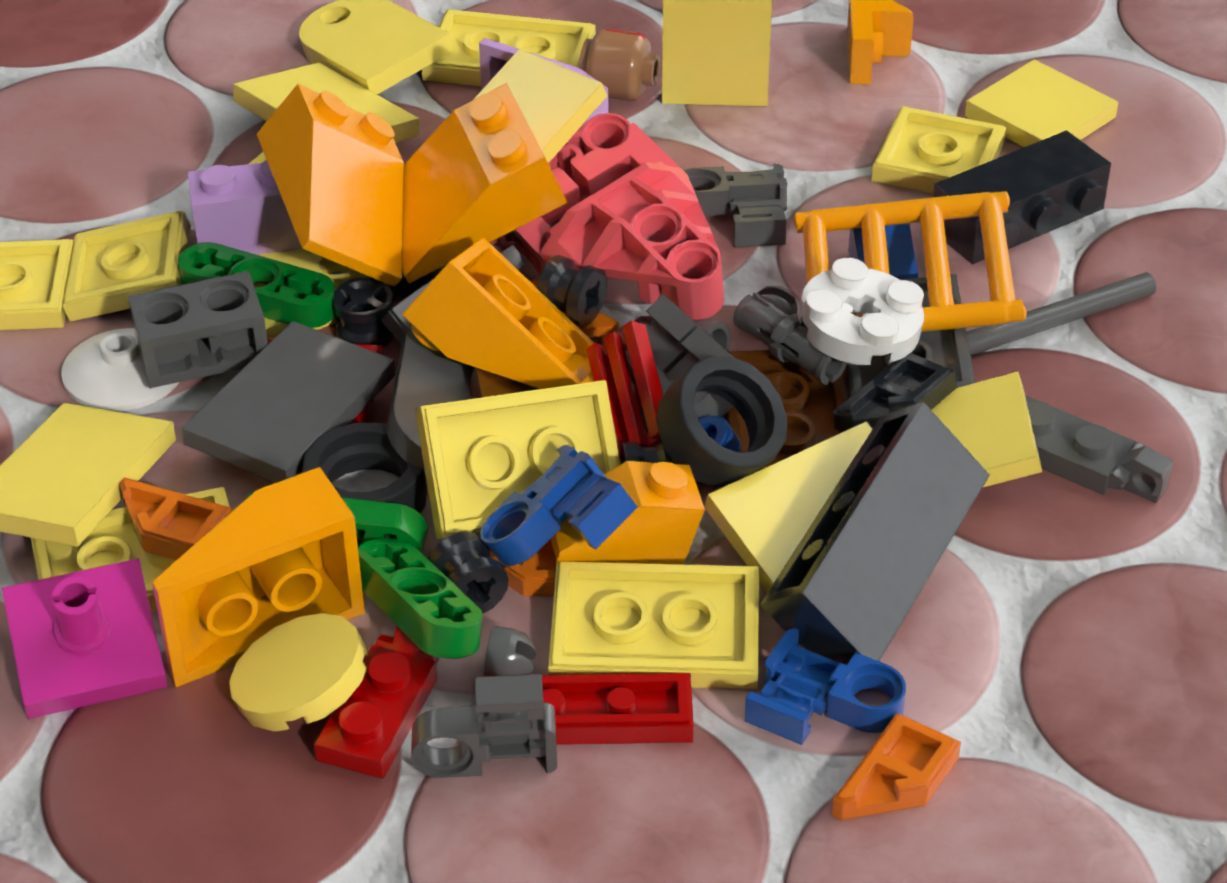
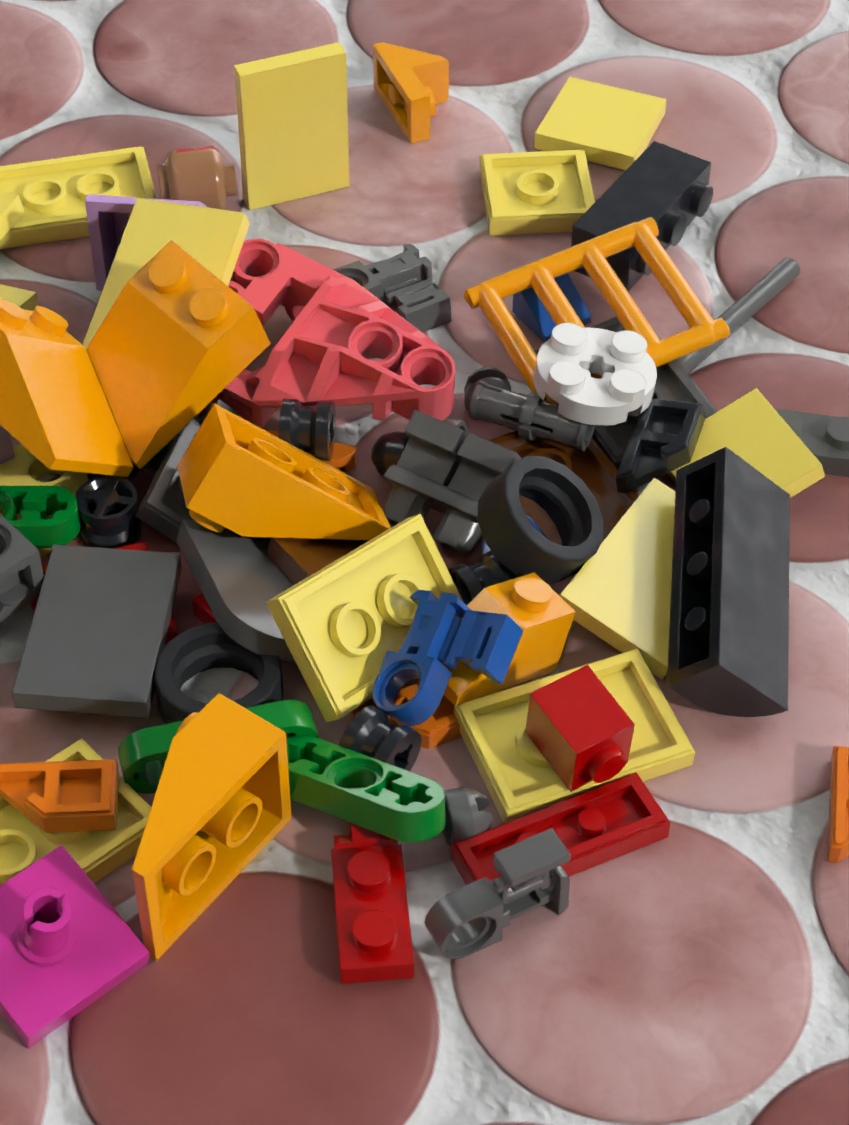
camera: 25 degrees left, 5 degrees up
(298, 671) = (283, 902): light yellow tile -> none
(611, 364) = (394, 511): red tile -> none
(646, 611) = (580, 728): none -> red brick
(808, 683) = (747, 744): blue piece -> none

